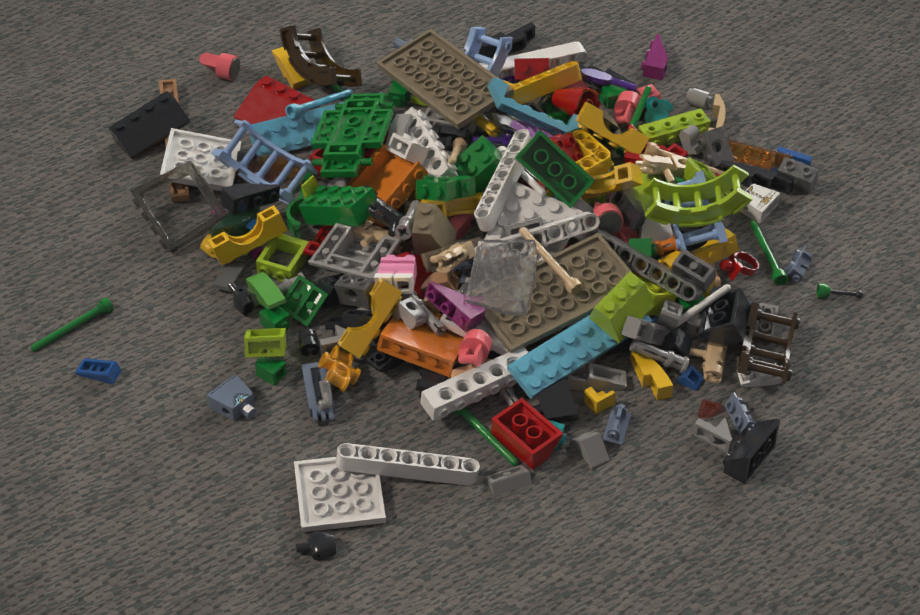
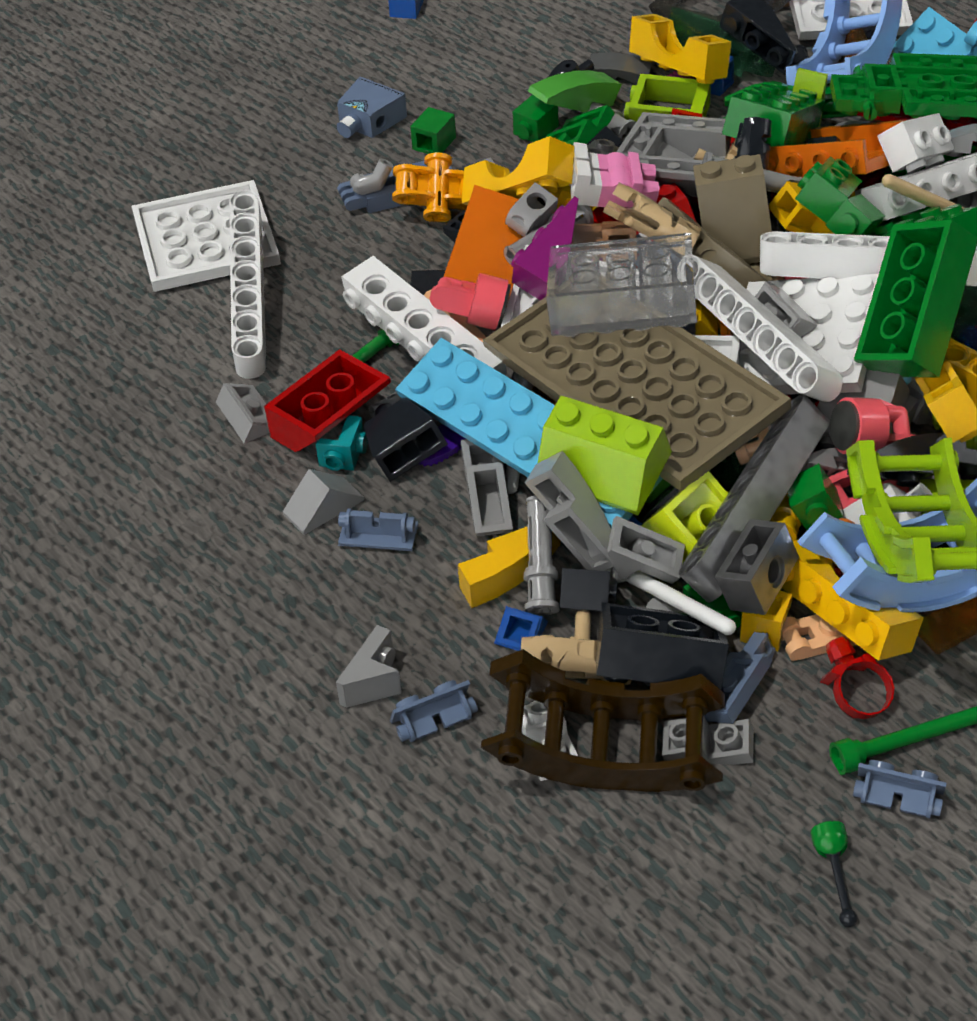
camera: 85 degrees right, 0 degrees up
(271, 339) = (469, 107): lime window -> none
(308, 342) = (501, 154): black wheel -> none
(320, 545) = (104, 232): black piece -> none
(572, 284) = (636, 377): tan piece -> none
(598, 401) = (431, 498): yellow panel -> none
(708, 408) = (445, 662): clear red tile -> none
(751, 450) = (324, 726): black slope -> none

